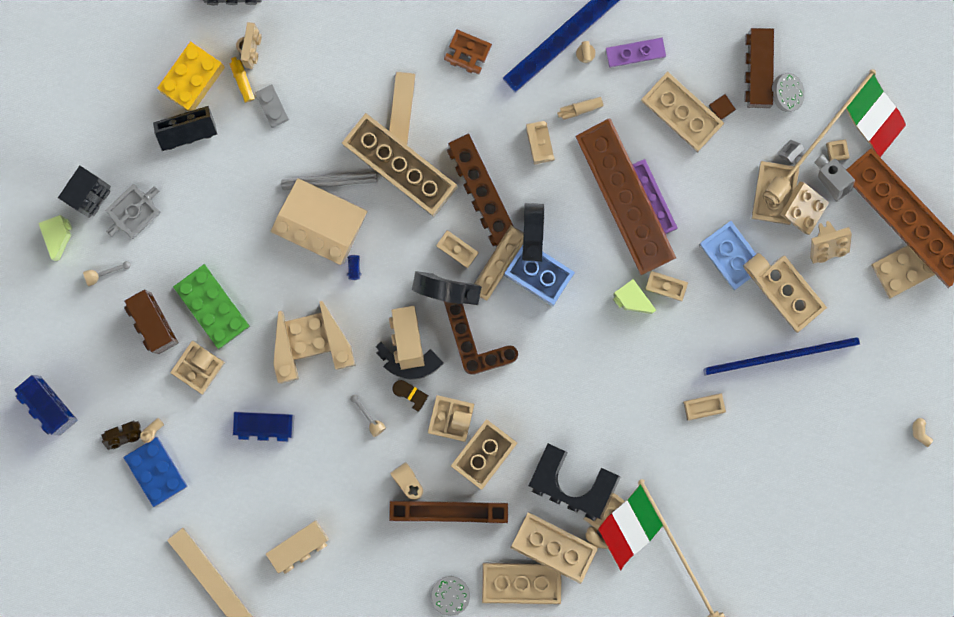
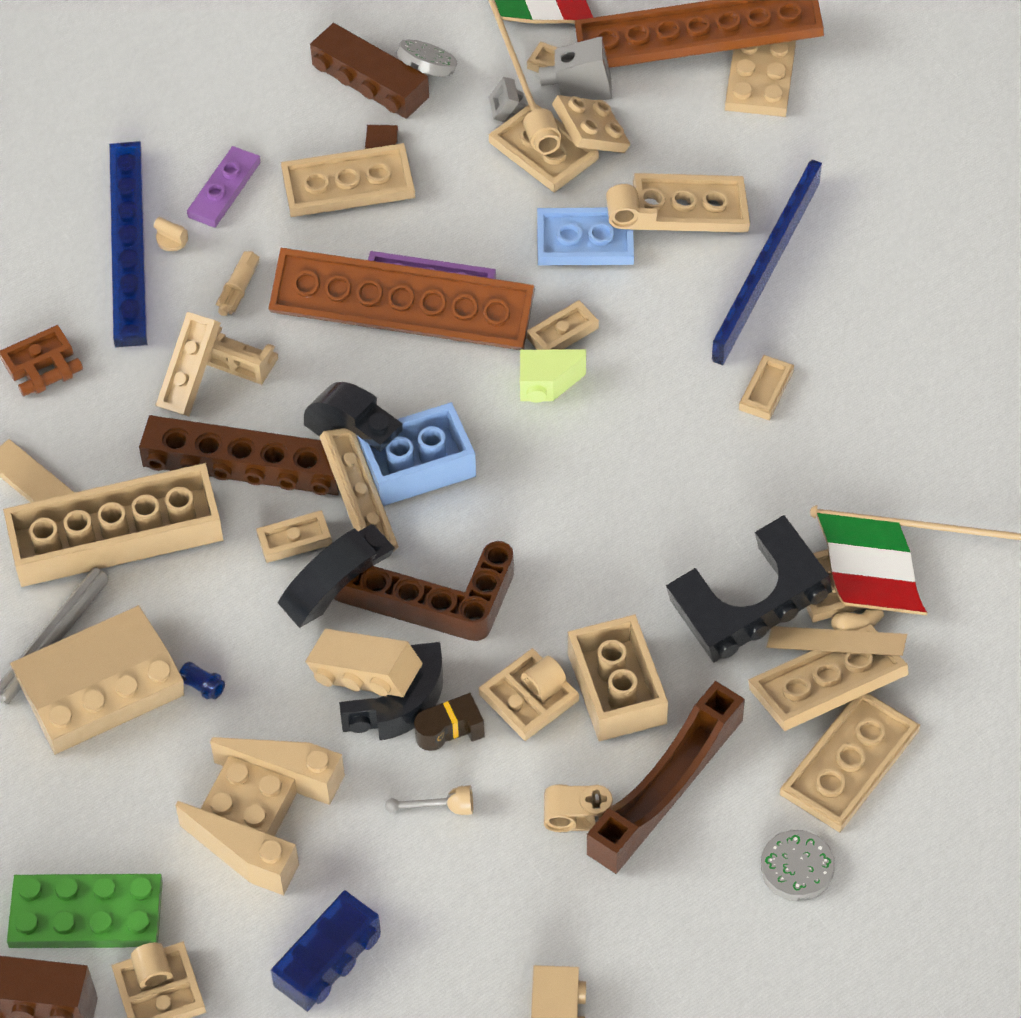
camera: 55 degrees left, 30 degrees down
(510, 127) = (188, 364): none -> tan plate
(577, 539) = (837, 640): none -> tan sticker
(830, 243) = (661, 120): tan plate -> none
(919, 432) = (993, 179): tan arm -> none

